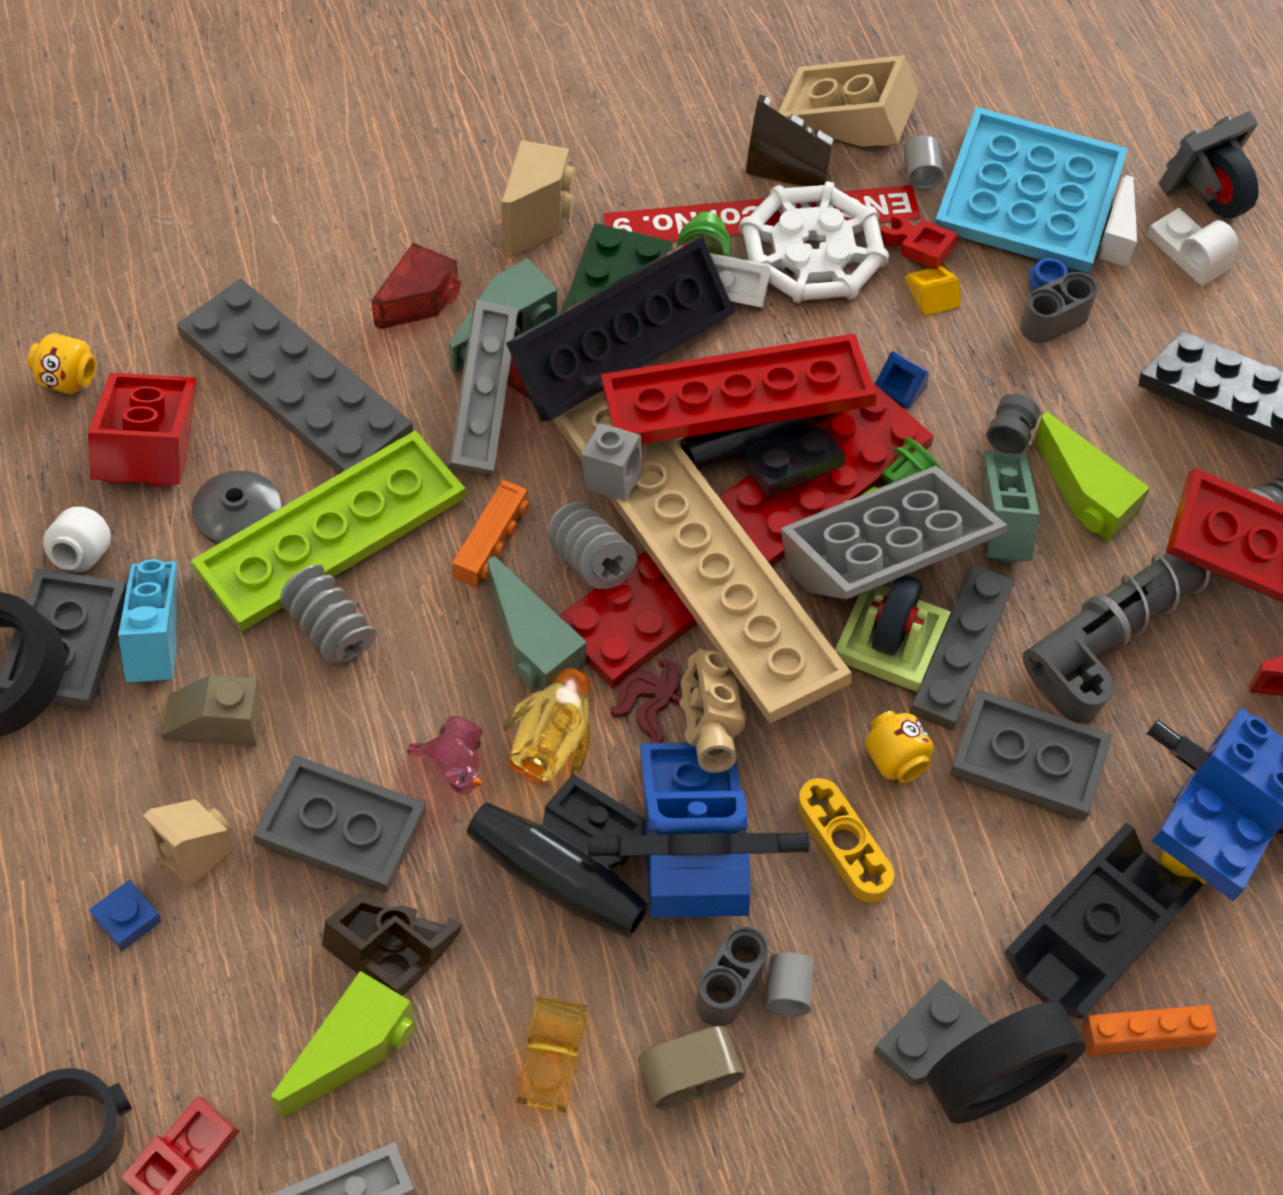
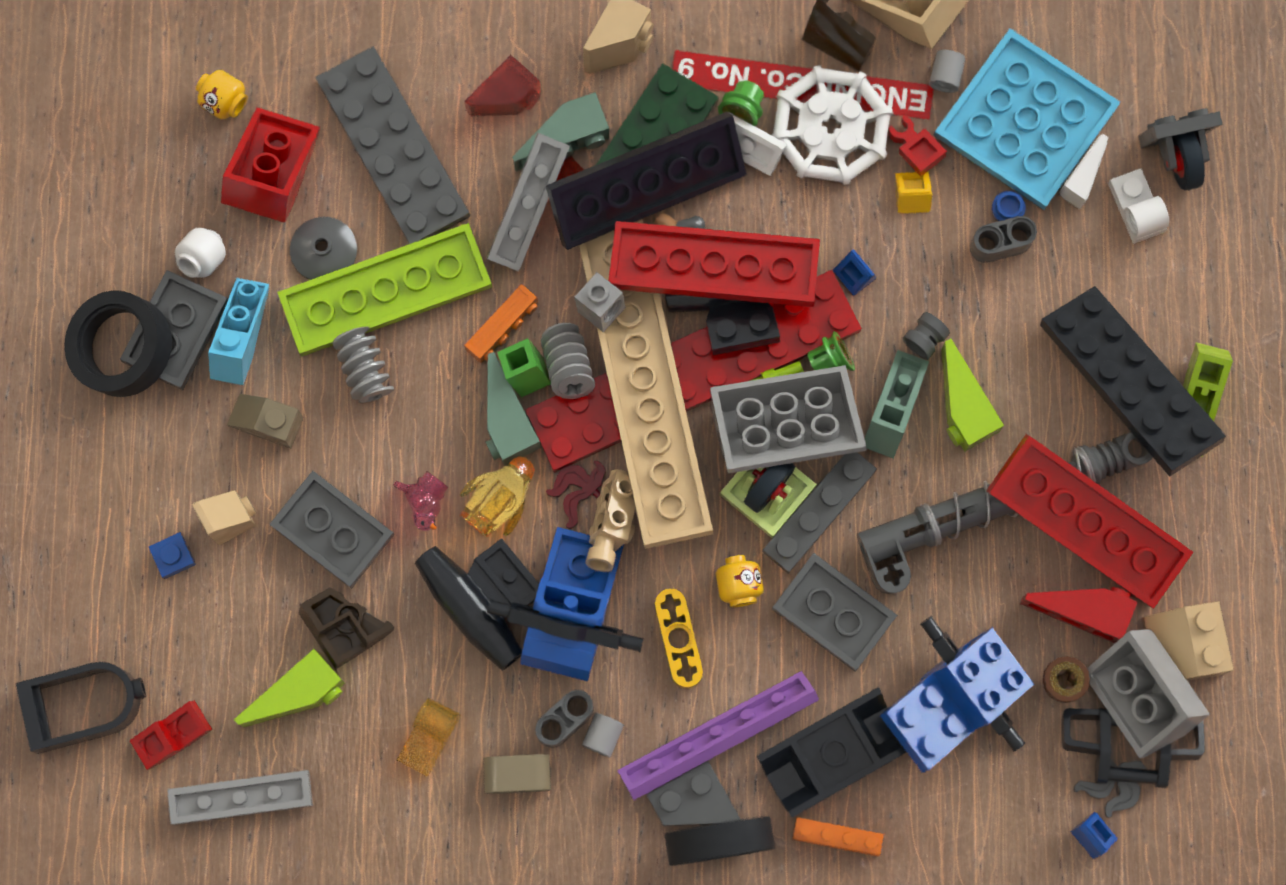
camera: 20 degrees right, 20 degrees up
(539, 564) = (524, 367): none -> bright green brick
(940, 944) = (718, 735): none -> medium lavender plate

